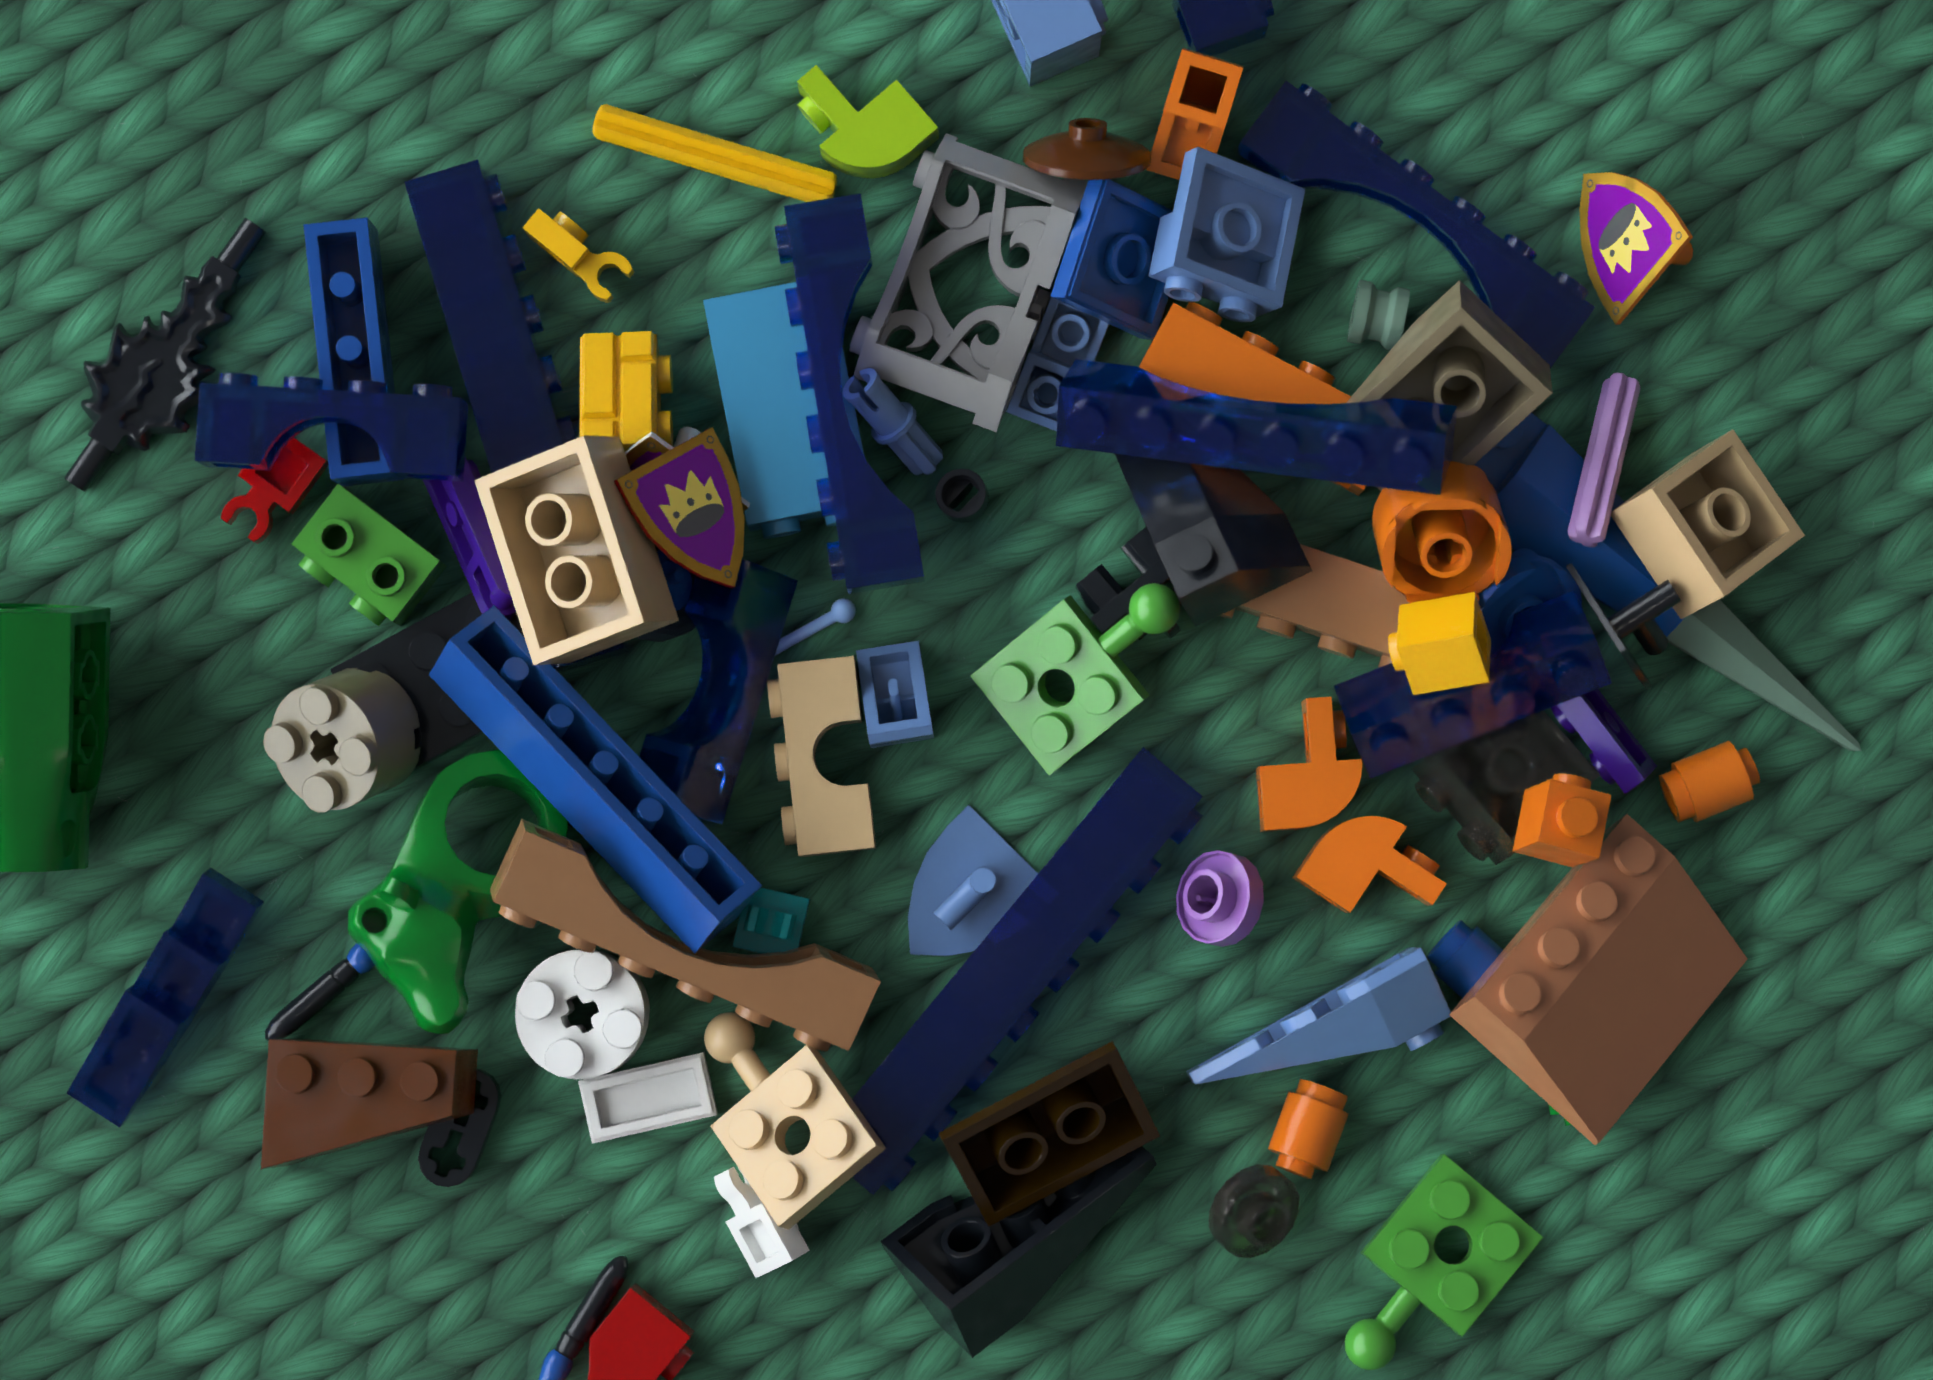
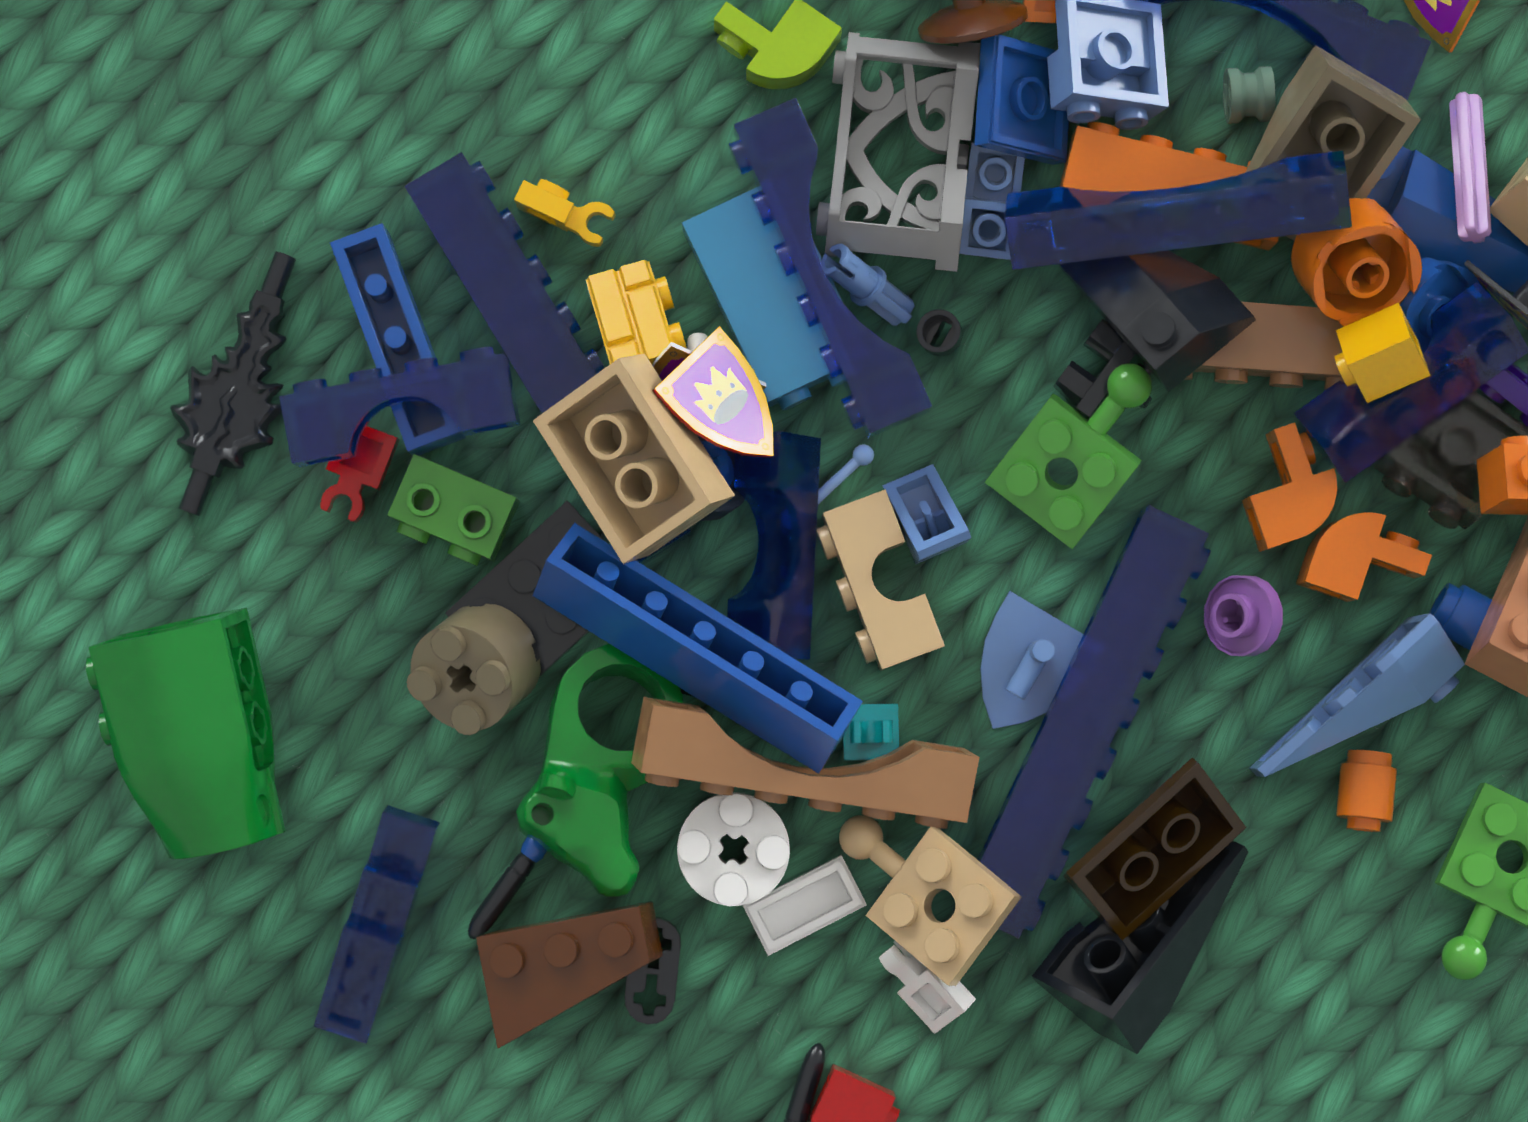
camera: 20 degrees left, 0 degrees up
(471, 539) = (540, 472): dark purple plate -> none
(713, 155) = (655, 100): yellow axle -> none
(1254, 1211) = (1339, 870): clear smoke plate -> none

